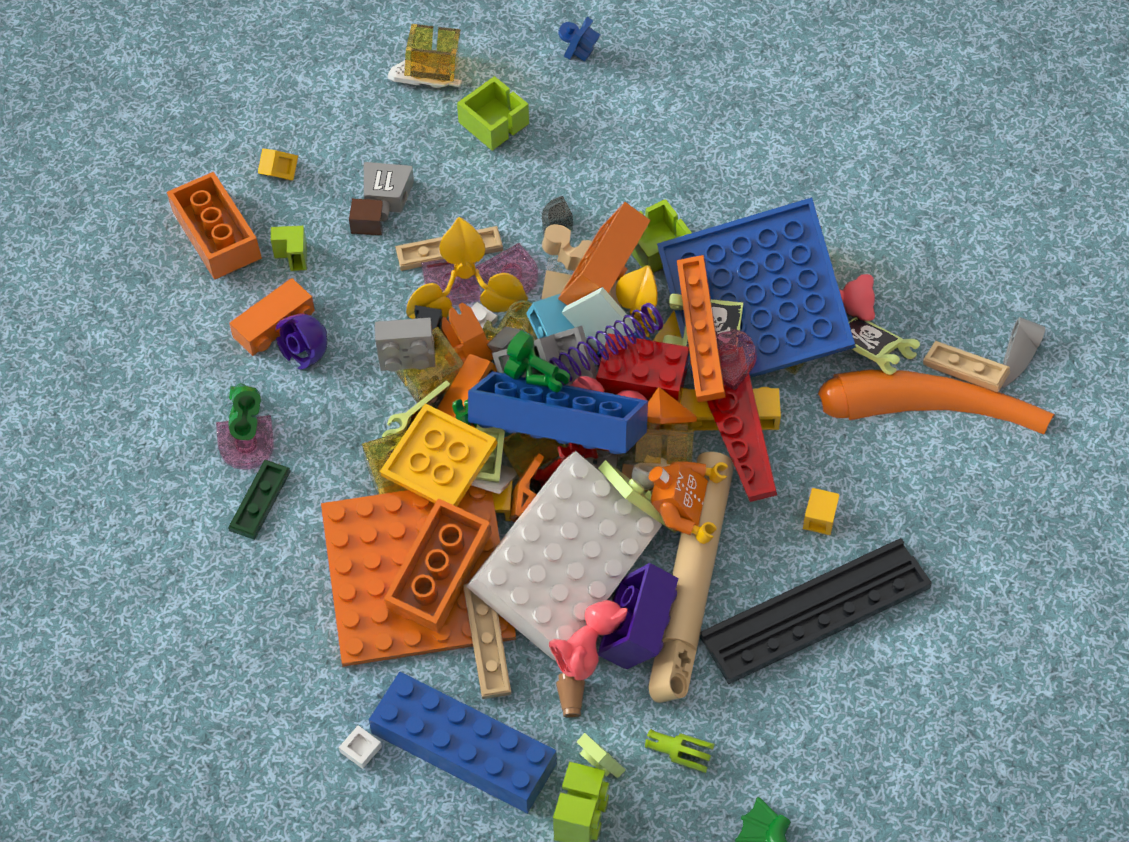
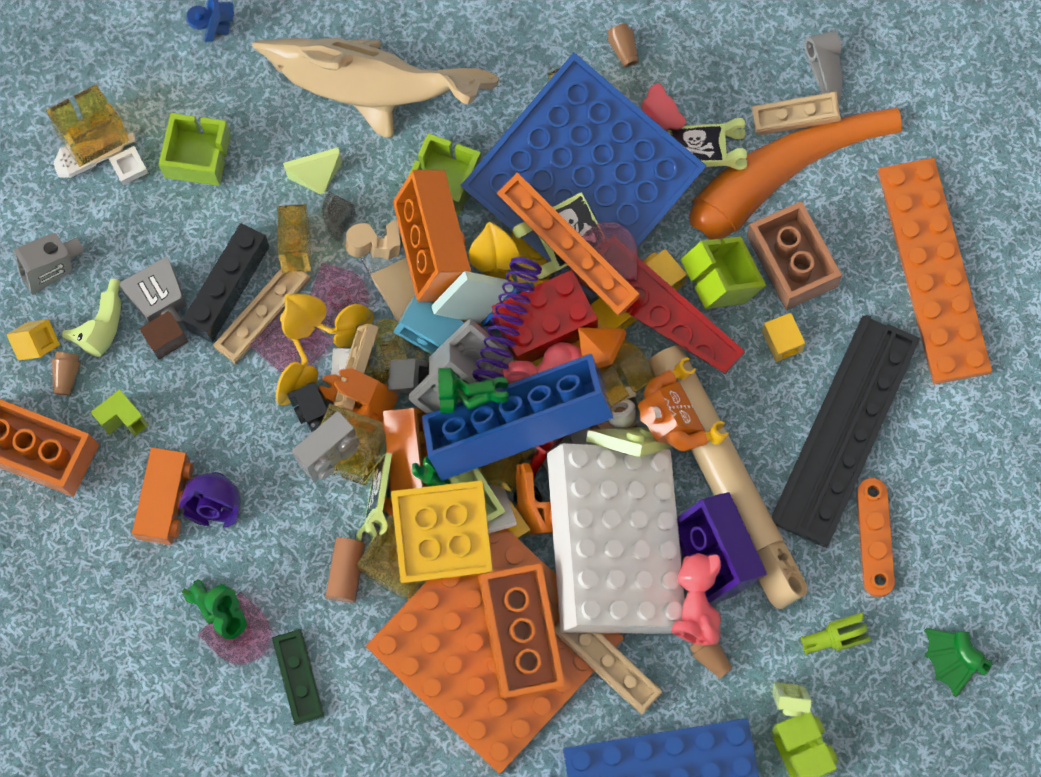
camera: 35 degrees left, 15 degrees up
(280, 197) = (64, 372): none -> medium nougat cone
(322, 188) = (97, 334): none -> yellowish green animal
(329, 118) = (45, 260): none -> light grey torso
(350, 455) = (344, 573): none -> nougat brick
(439, 210) = (226, 283): none -> black brick
(440, 98) = (128, 165): none -> white plate
(487, 313) = (358, 359): none -> tan tile
(511, 211) = (294, 238): none -> clear yellow brick
(568, 179) = (315, 170): none -> yellowish green slope
(657, 140) = (368, 77): none -> tan animal
(773, 703) = (875, 537): none -> orange plate
(810, 438) = (723, 272): none -> lime piece
(870, 238) = (623, 43): none -> medium nougat cone
(877, 458) = (794, 255): none -> nougat brick
(985, 548) = (934, 271): none -> orange plate

